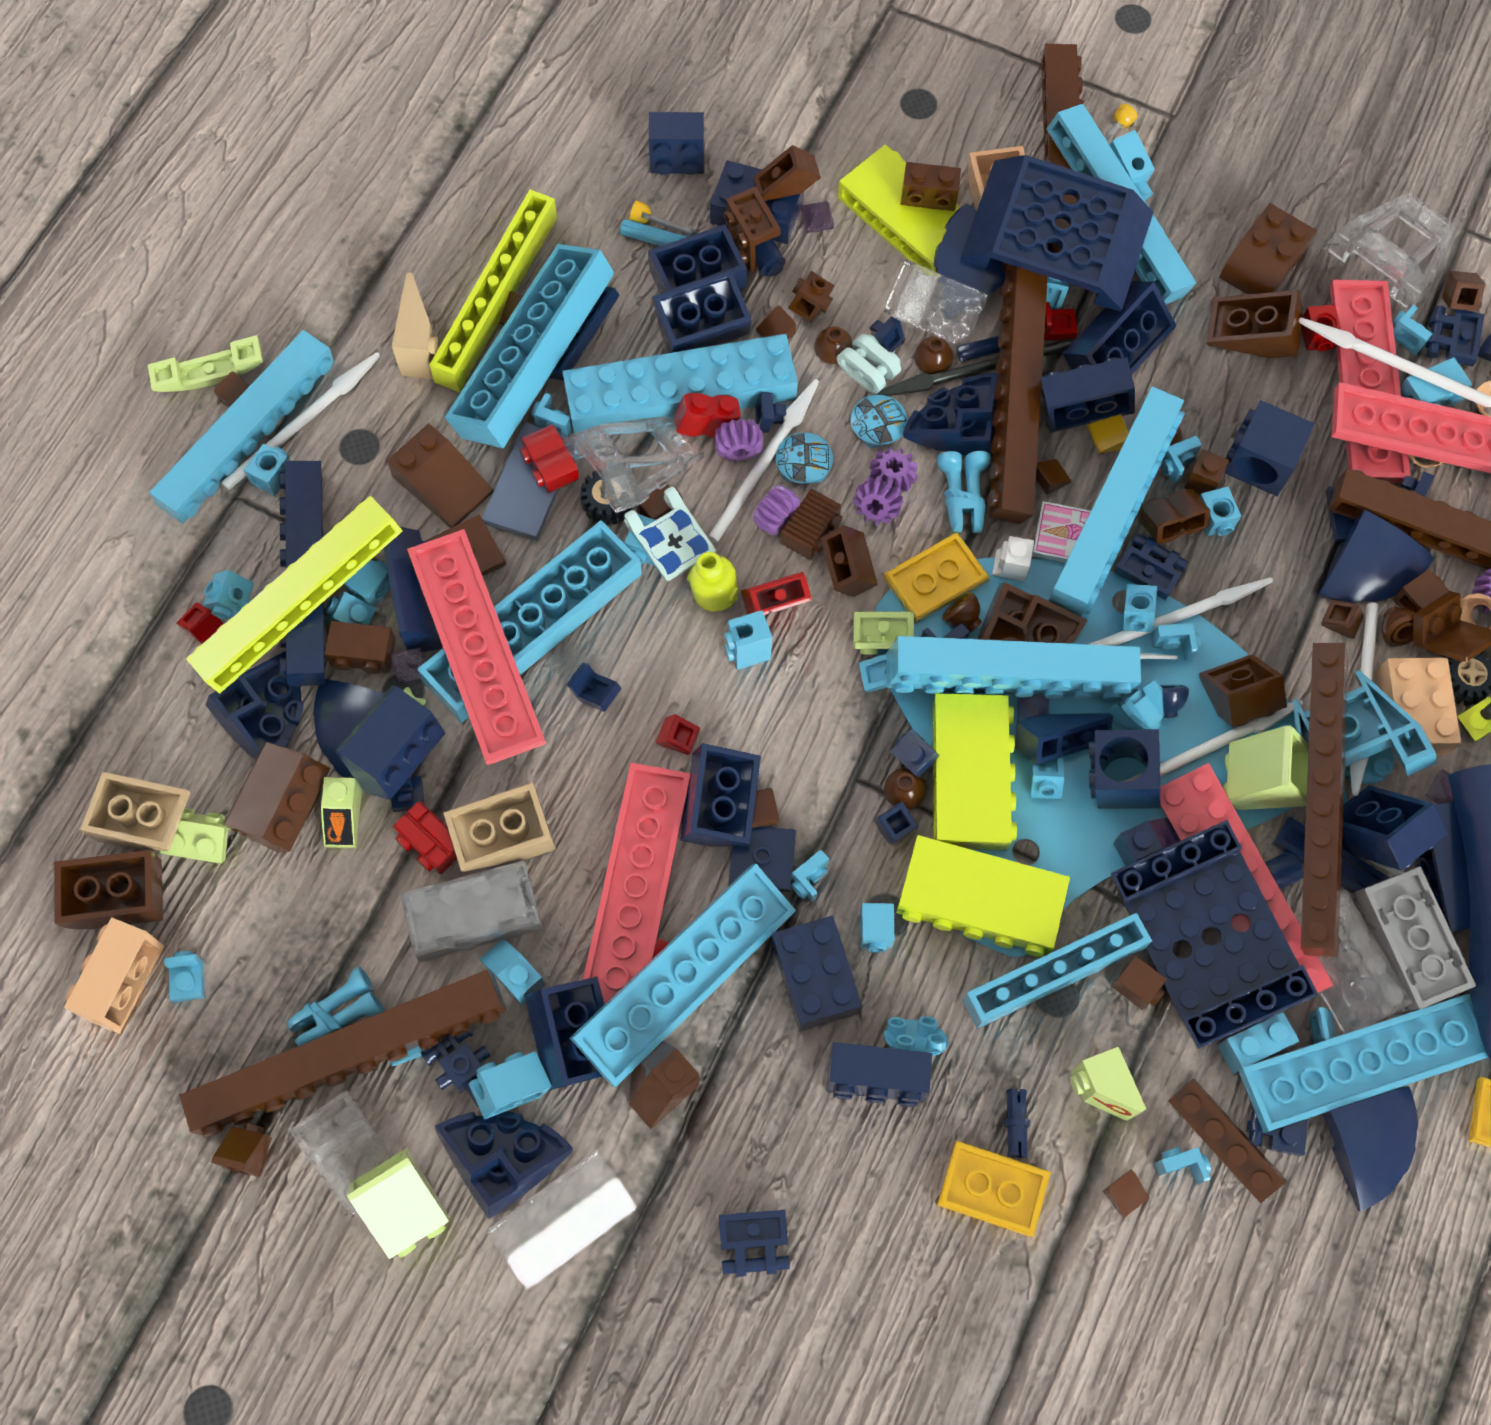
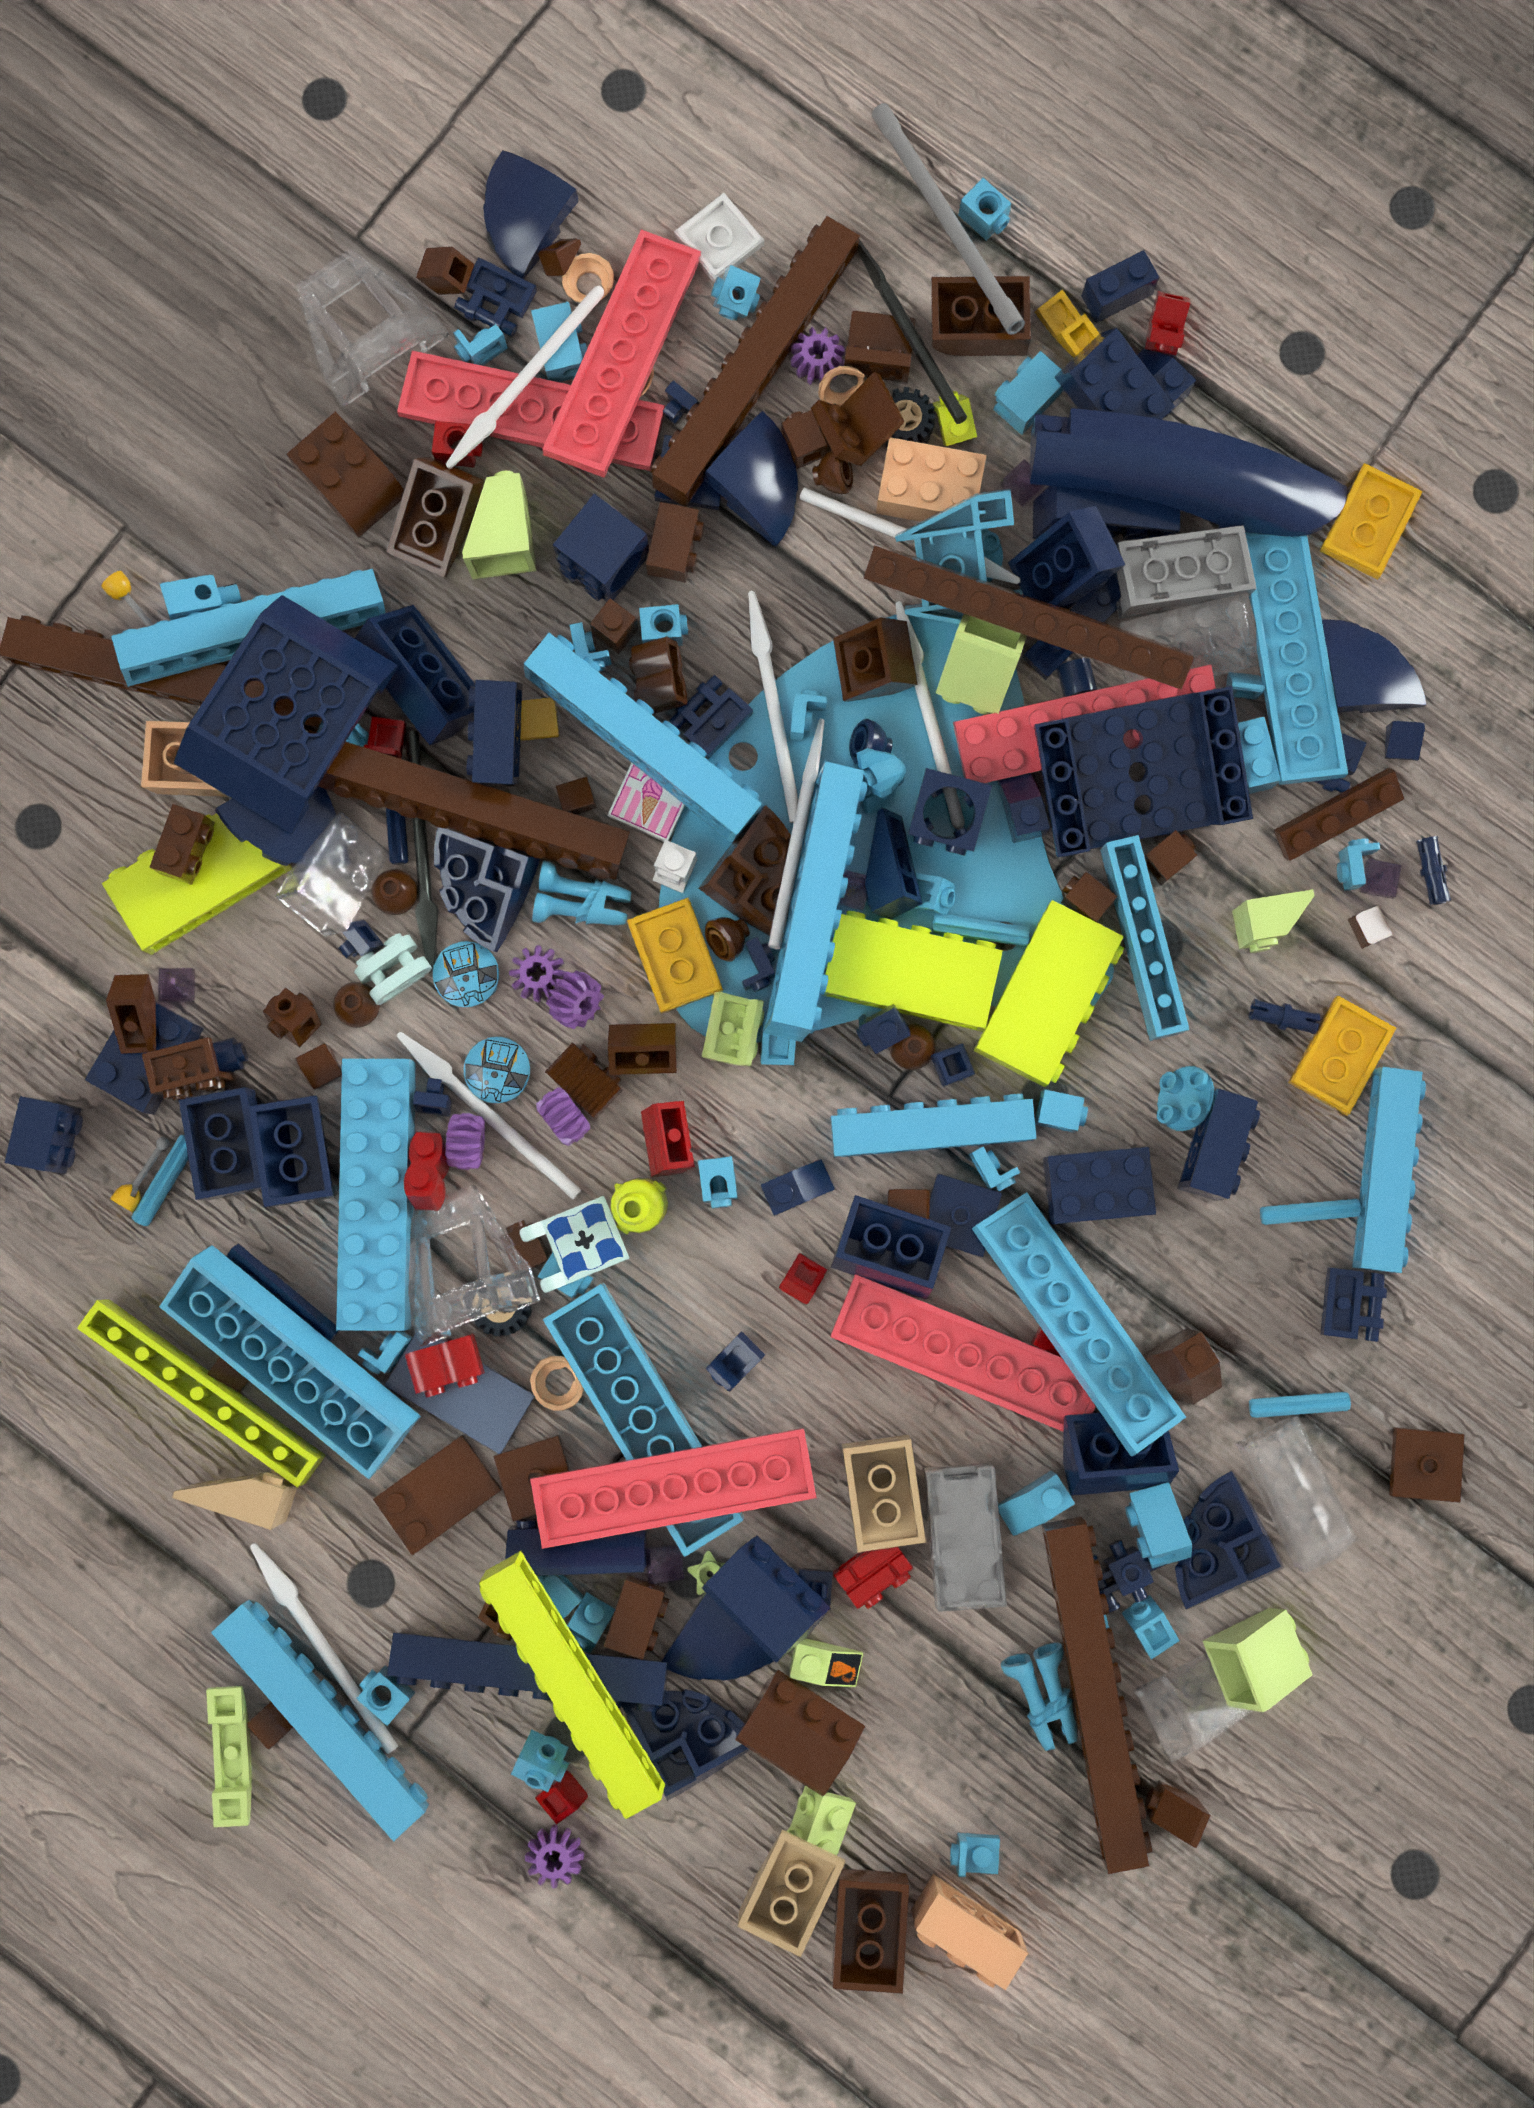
camera: 75 degrees left, 15 degrees up
(149, 622) = (564, 1865): none -> medium lavender gear
(413, 1099) = (1150, 1626): none -> medium azure bracket
(542, 540) = (545, 1397): none -> light nougat piece
(611, 1347) = (1426, 1464): none -> reddish brown plate
(647, 1207) = (1299, 1404): none -> medium azure axle
(756, 710) = (797, 1187): none -> dark blue slope
(835, 1184) = (1310, 1211): none -> medium azure axle
(836, 817) = (933, 1127): none -> medium azure brick
(893, 1251) = (1388, 1170): none -> medium azure brick
(1026, 825) = (981, 929): none -> medium azure axle
(1080, 914) = (1087, 896): none -> reddish brown brick
(1140, 608) = (752, 739): medium azure brick -> none
(1175, 1195) = (1381, 878): none -> clear purple tile
(1198, 1246) = (1433, 870): none -> dark blue pin
(1260, 369) = (500, 530): none -> yellowish green slope
(1294, 505) = (674, 541): none -> reddish brown brick
(1318, 1193) = (1404, 740): none -> dark blue slope
(1343, 618) = (810, 529): reddish brown slope -> none

